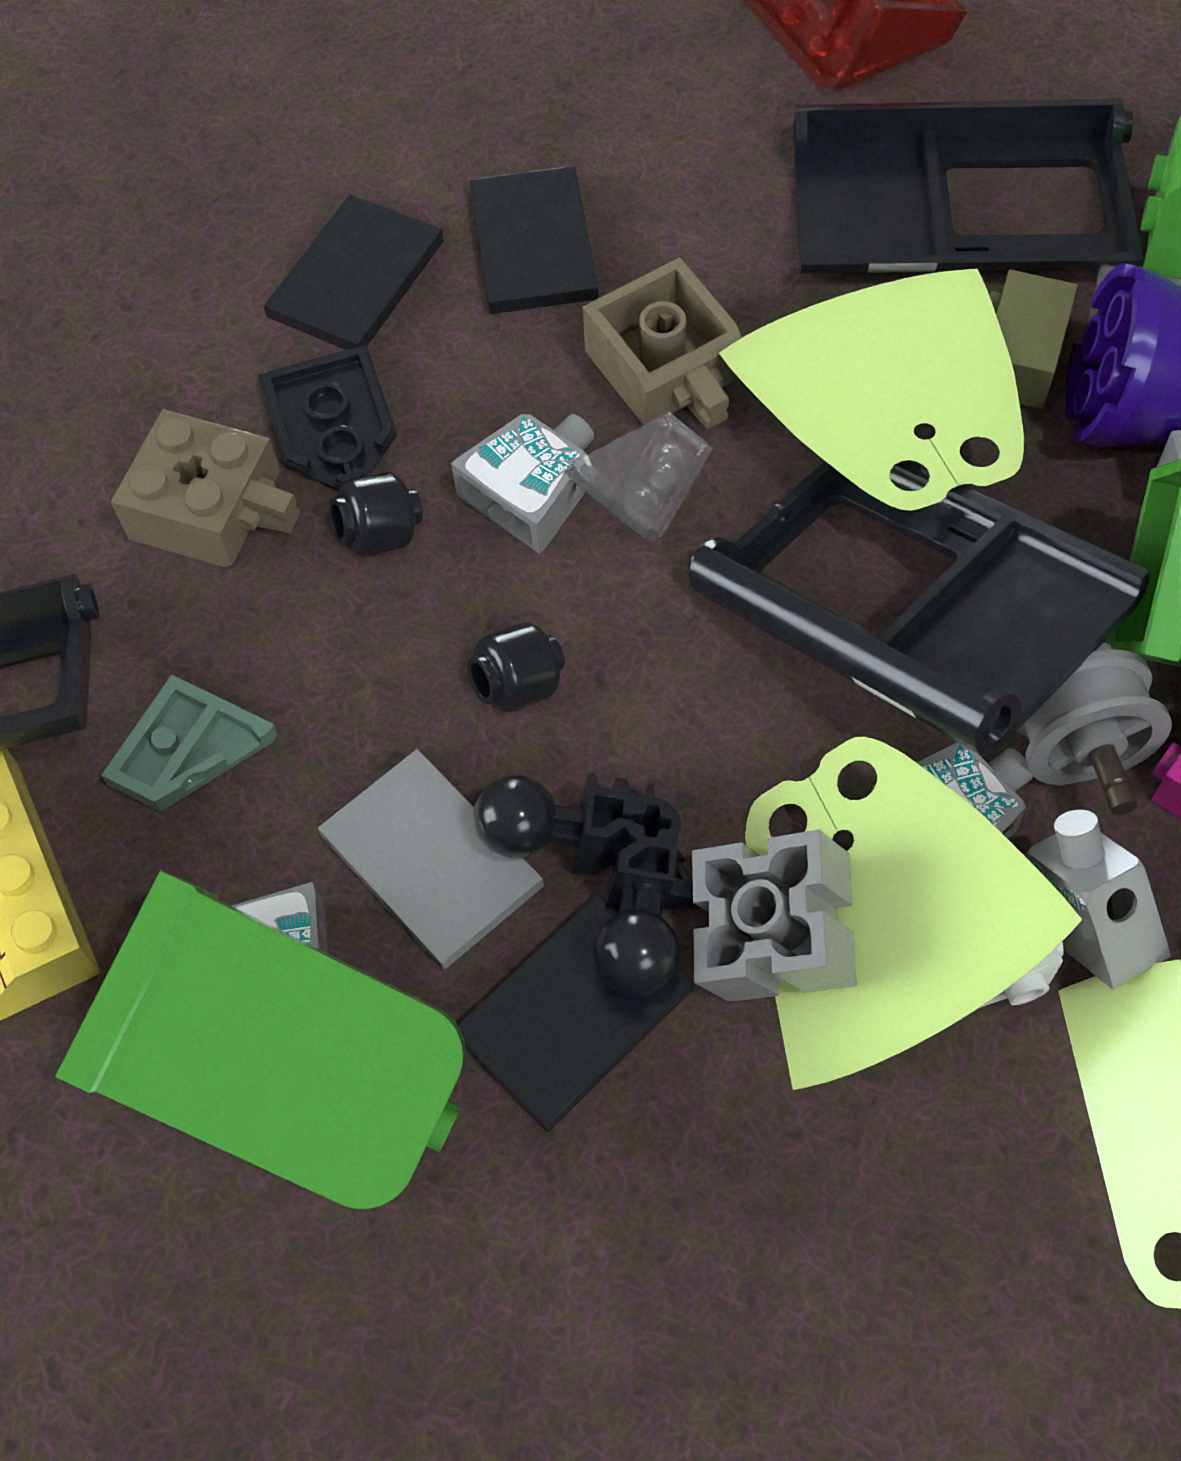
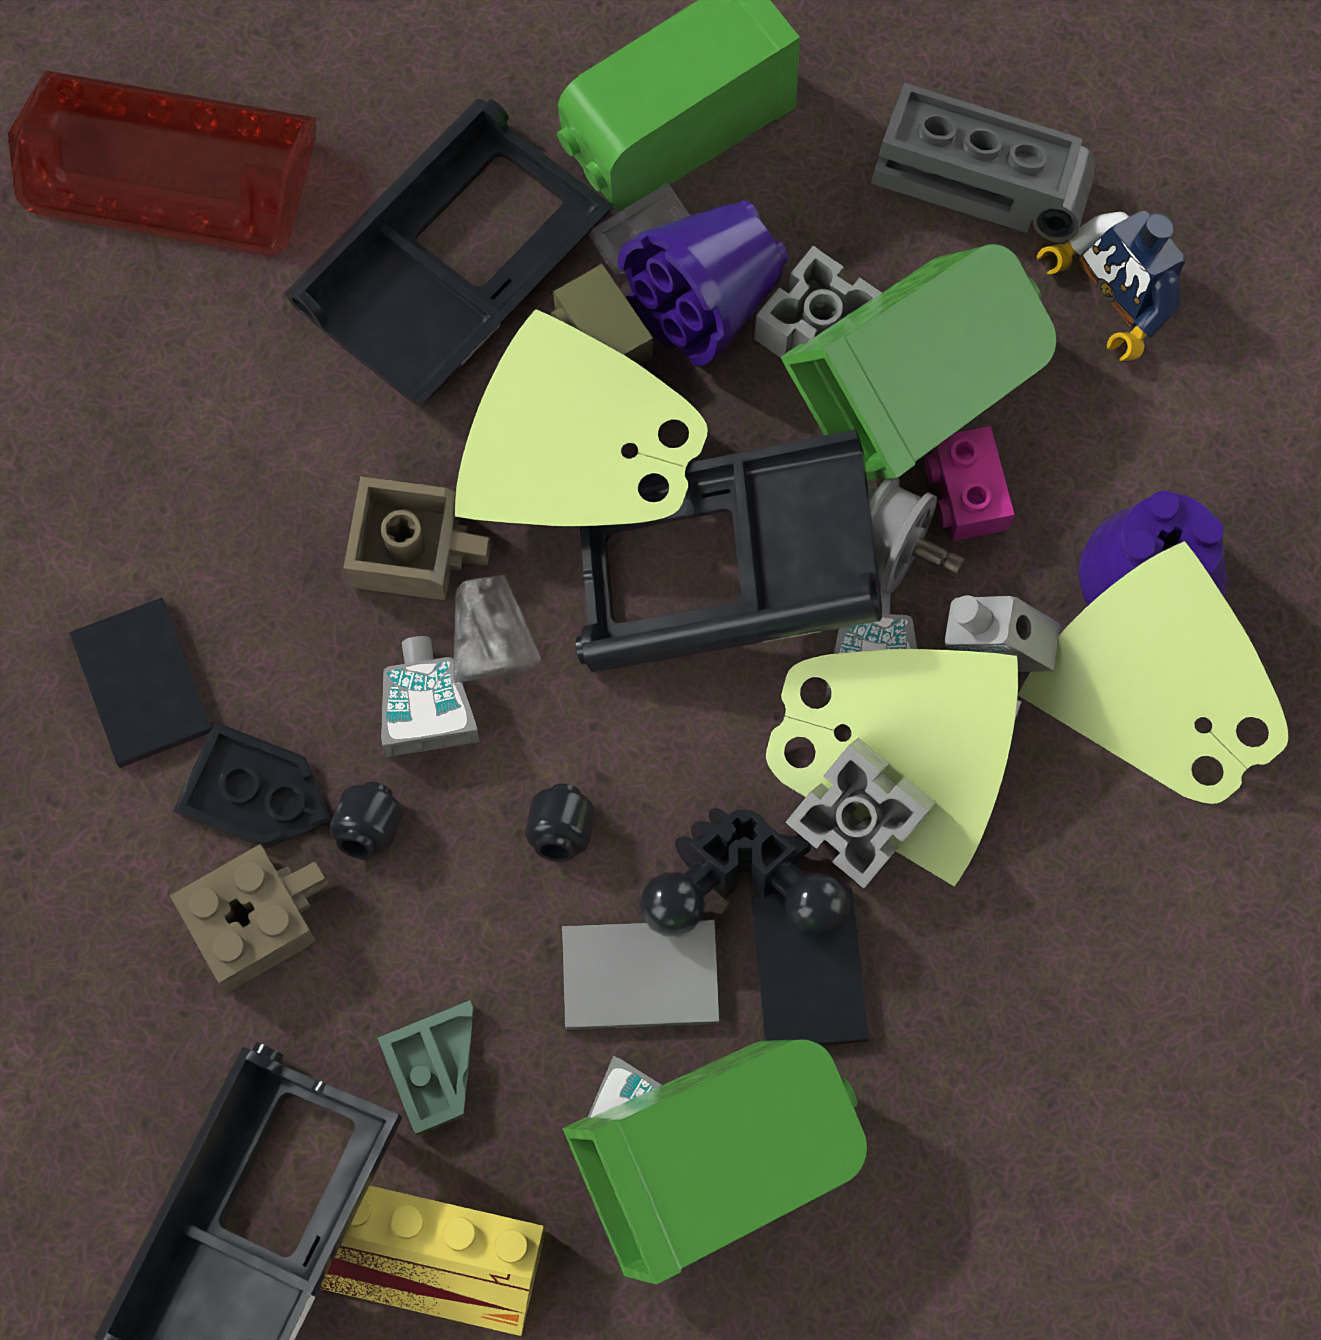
camera: 55 degrees left, 10 degrees up
(533, 240) = (224, 544): black tile -> none

